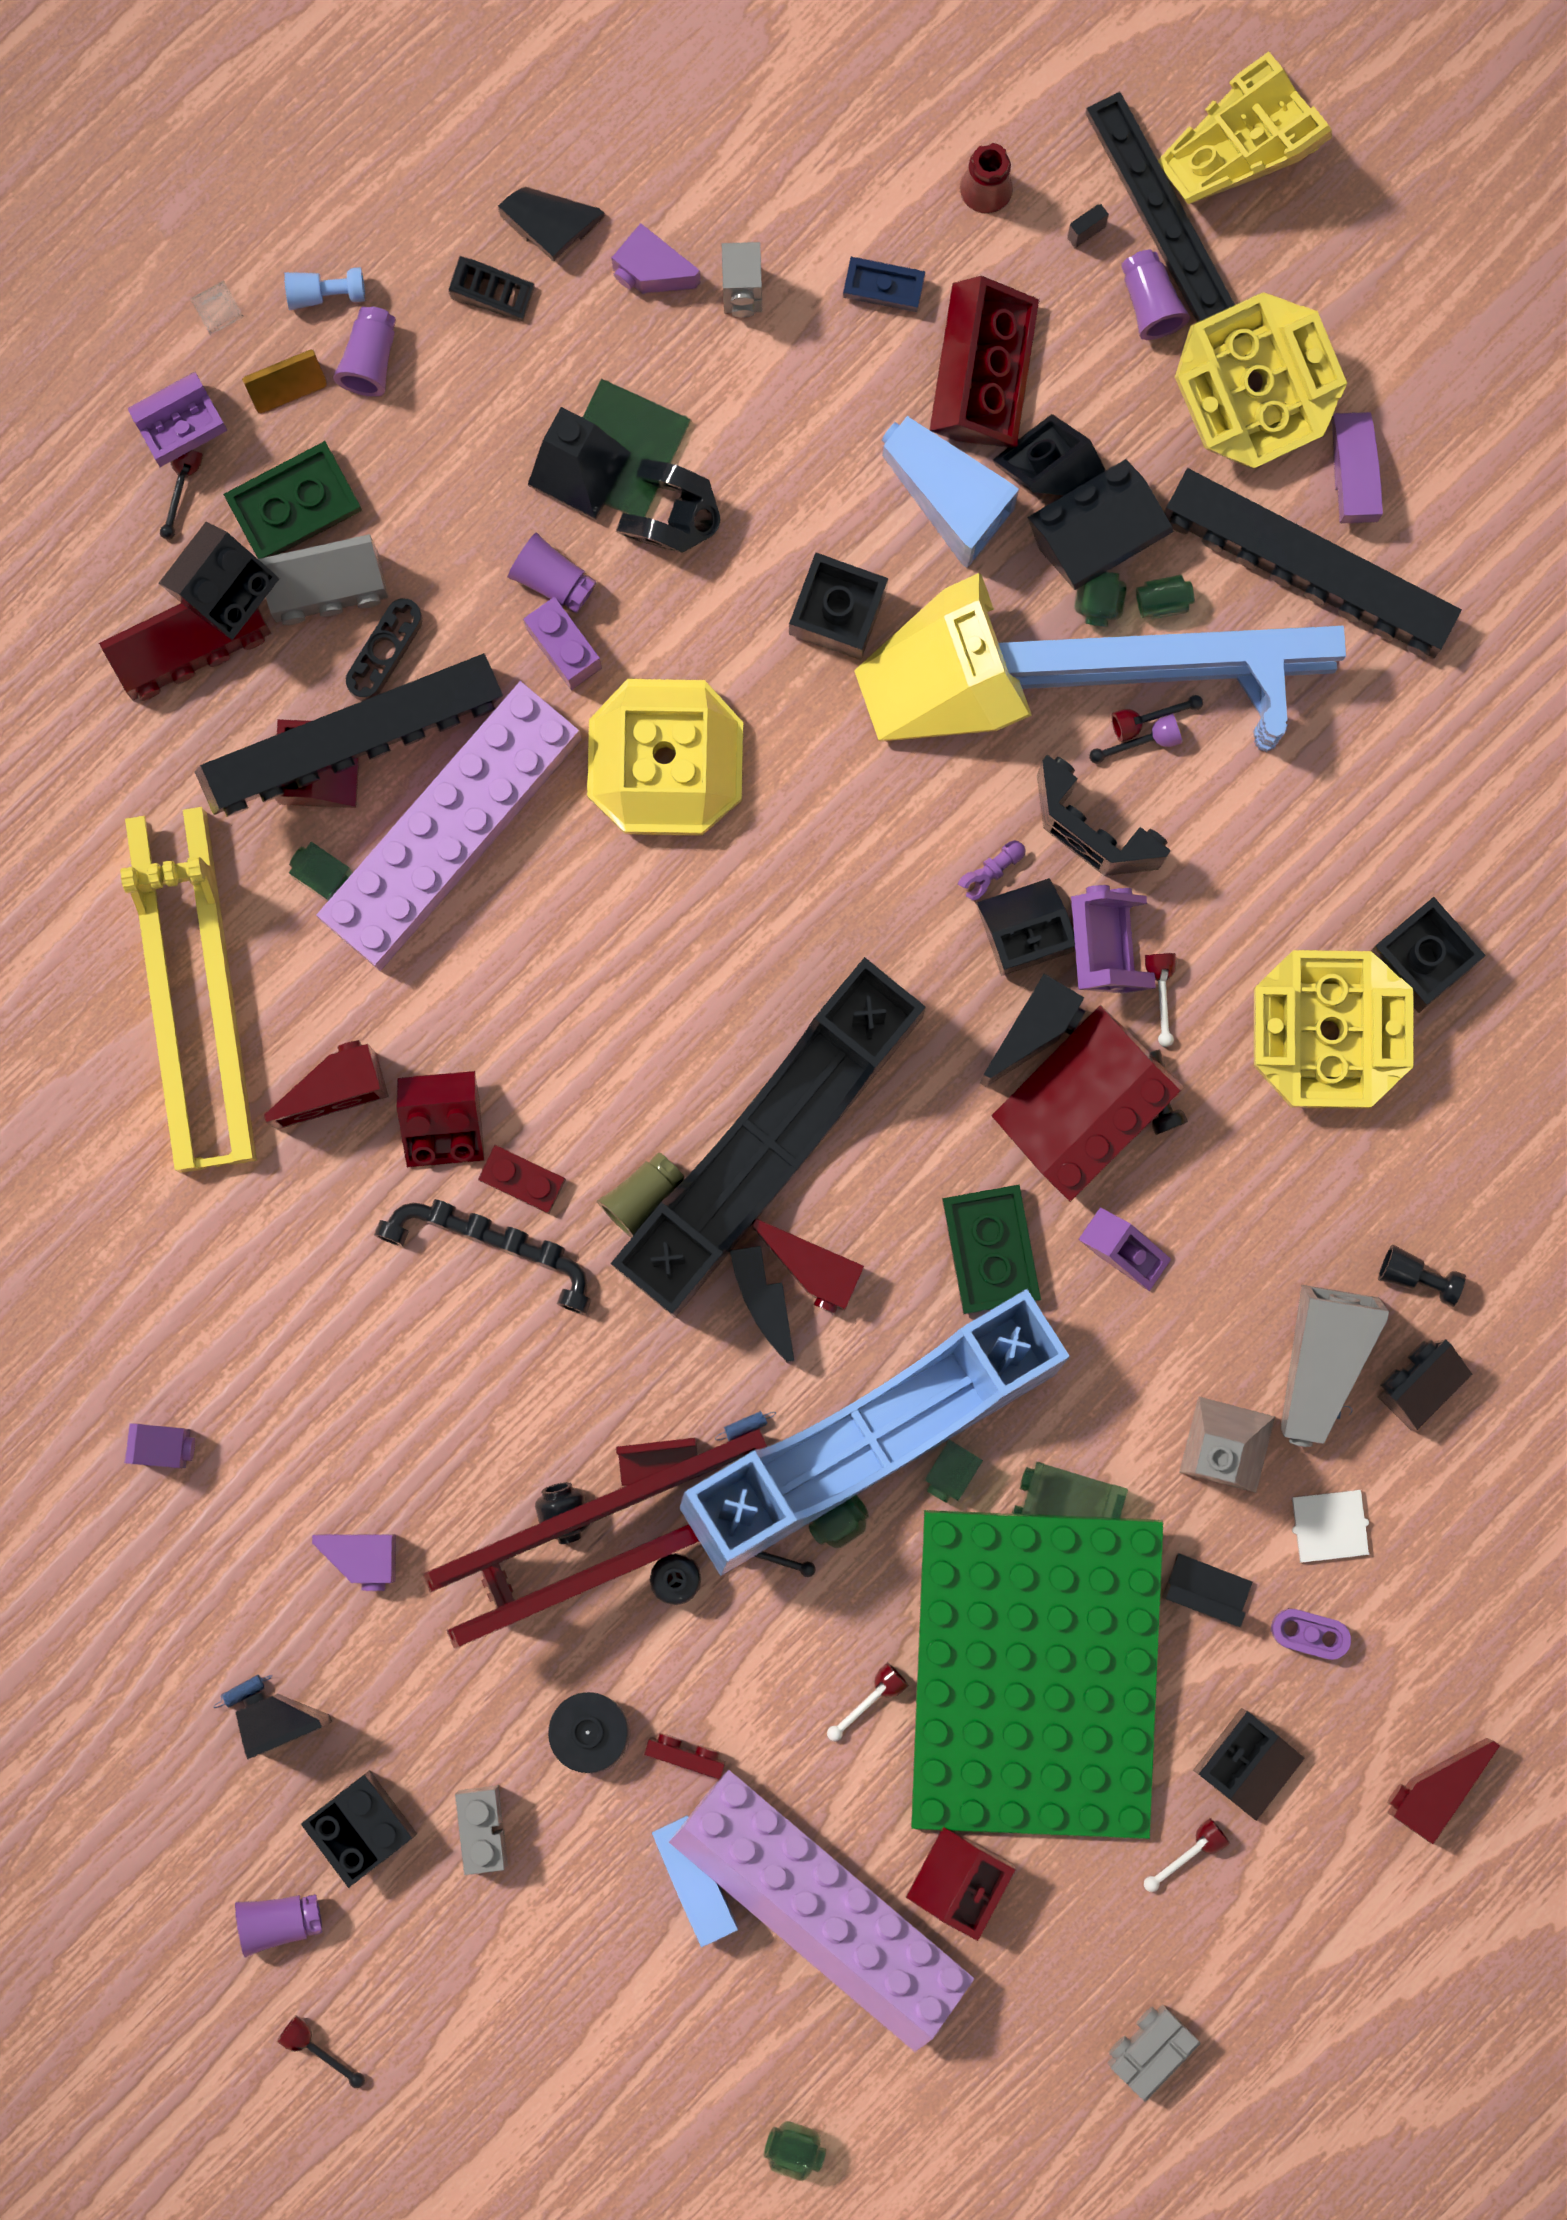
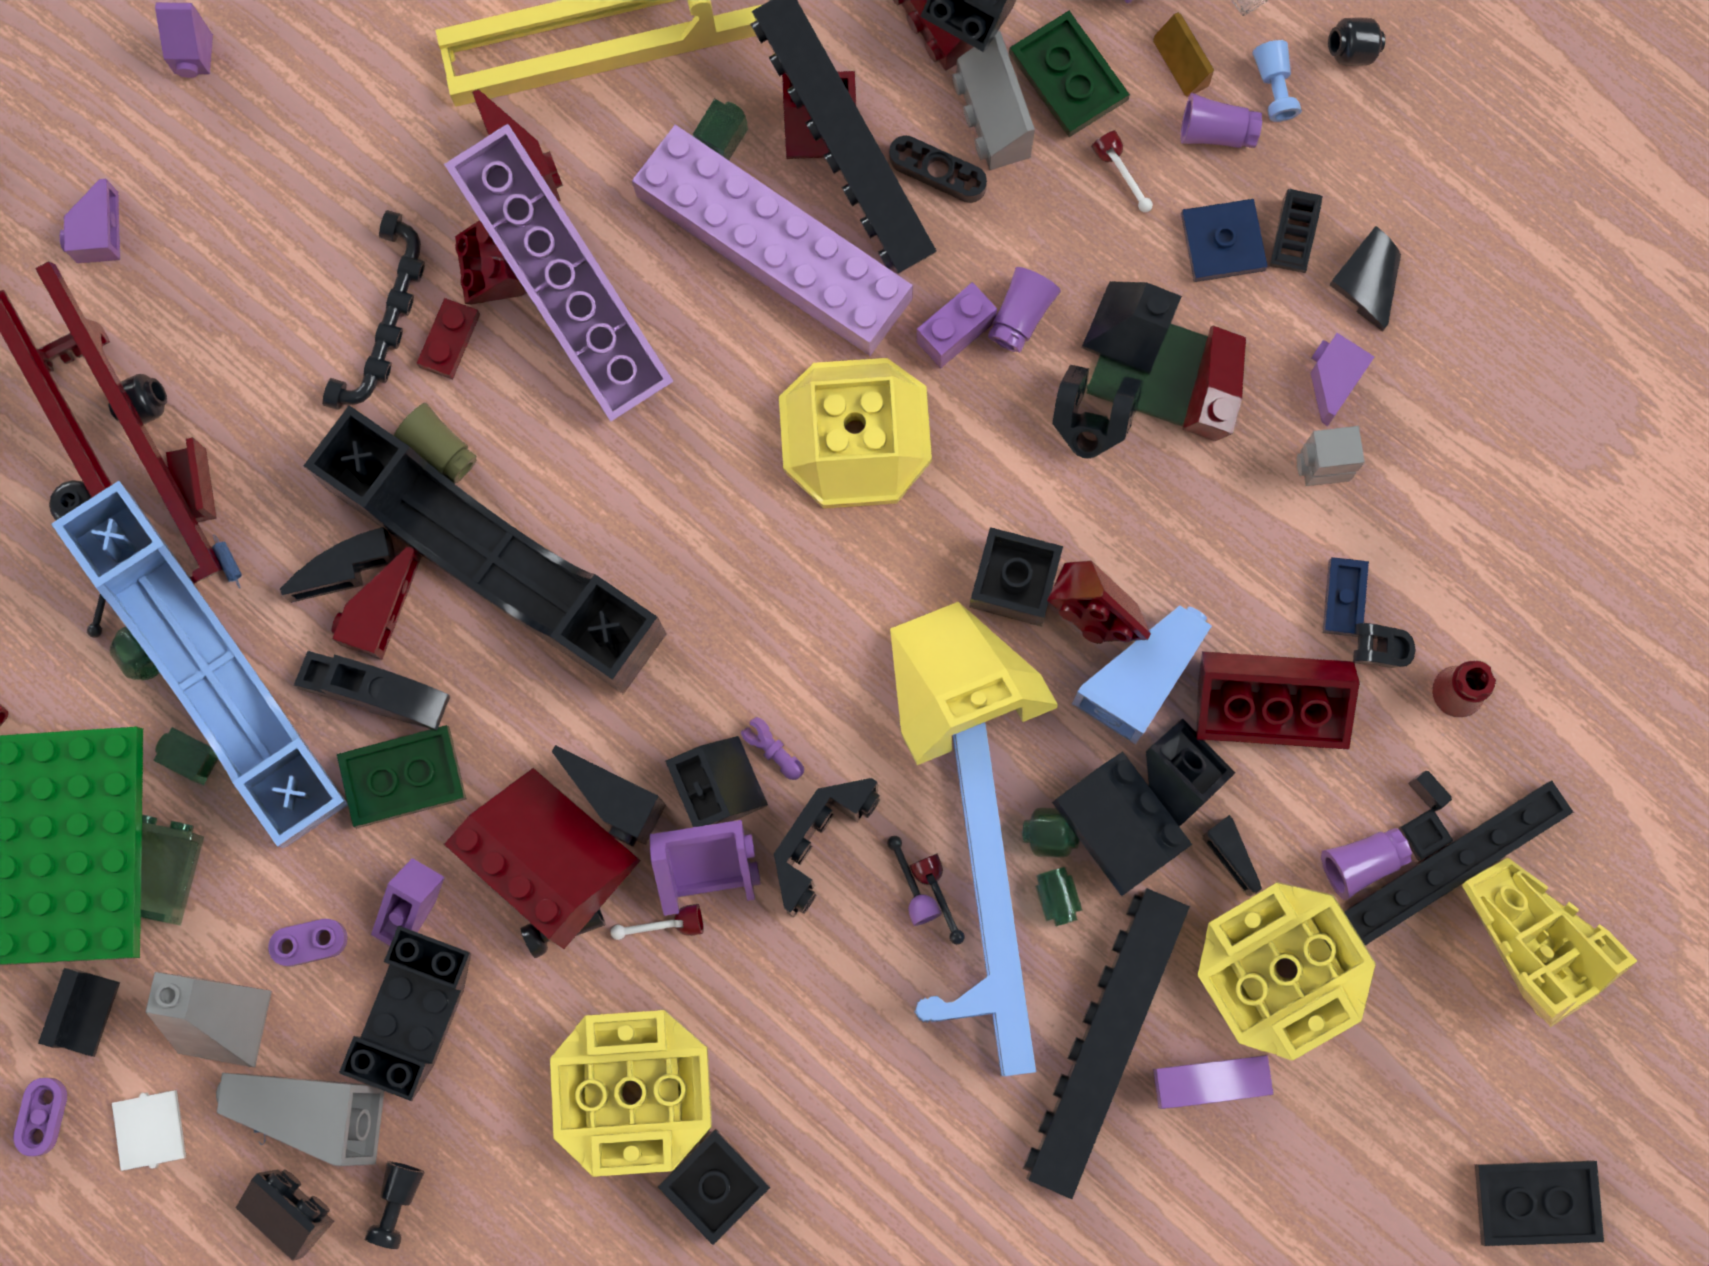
camera: 90 degrees right, 5 degrees down
(289, 202) = (1356, 41): none -> black head
(382, 468) = (1109, 149): none -> hinge
(478, 1041) = (558, 272): none -> lavender brick
(492, 363) = (1224, 240): none -> dark blue plate
(652, 384) = (1217, 386): none -> dark red slope
(879, 524) = (1097, 605): none -> dark red slope
(899, 1274) = (373, 689): none -> black slope
(940, 242) = (1394, 646): none -> black plate
(1128, 236) = (1425, 834): none -> black tile
(1130, 425) = (1230, 850): none -> black slope
(1152, 1355) = (306, 942): none -> medium lavender plate
(1236, 1251) = (409, 1014): none -> black slope
(1491, 174) = (1539, 1203): none -> black plate

